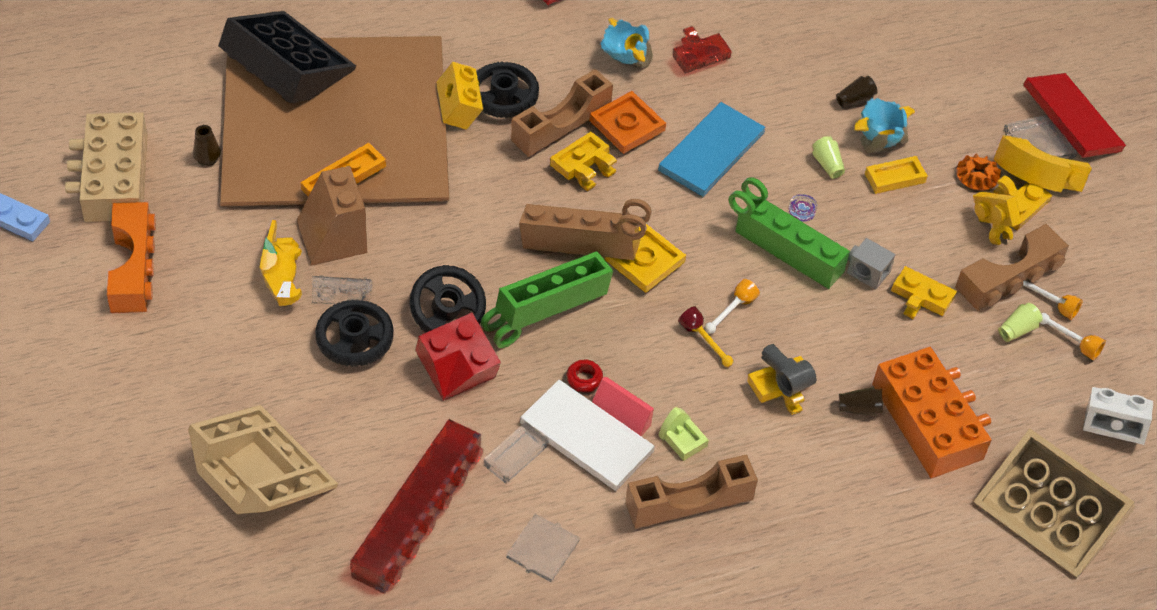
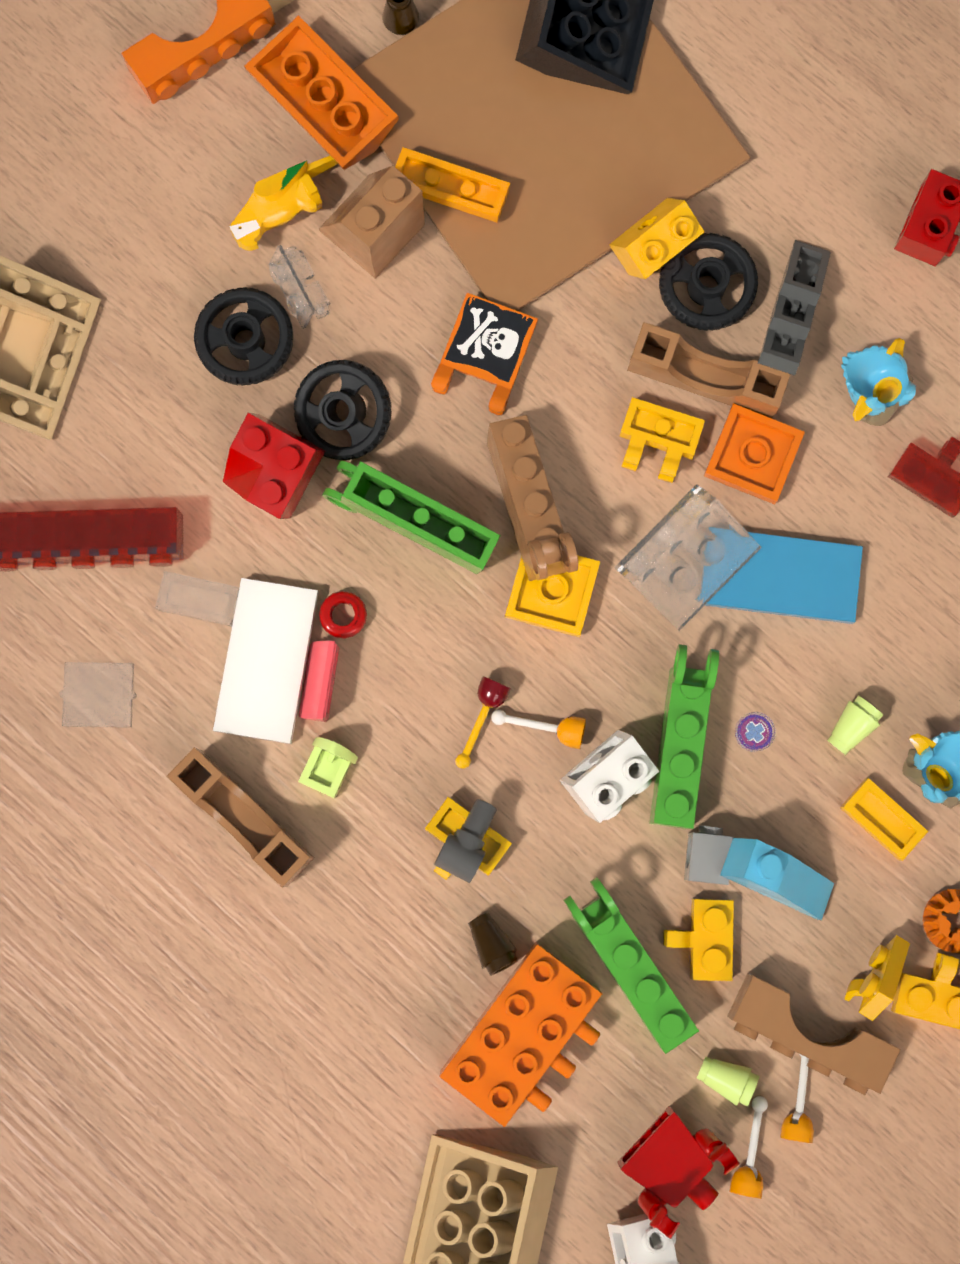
camera: 65 degrees right, 30 degrees up
(225, 208) = (322, 94): none -> orange slope
(461, 211) = (487, 345): none -> flag
(548, 54) = (794, 308): none -> dark grey slope
(671, 177) = (688, 556): none -> clear slope
(788, 282) = (610, 776): none -> white brick
(900, 228) = (777, 876): none -> medium azure slope
(906, 332) = (633, 969): none -> bright green hinge
(1057, 371) = (673, 1167): none -> red torso

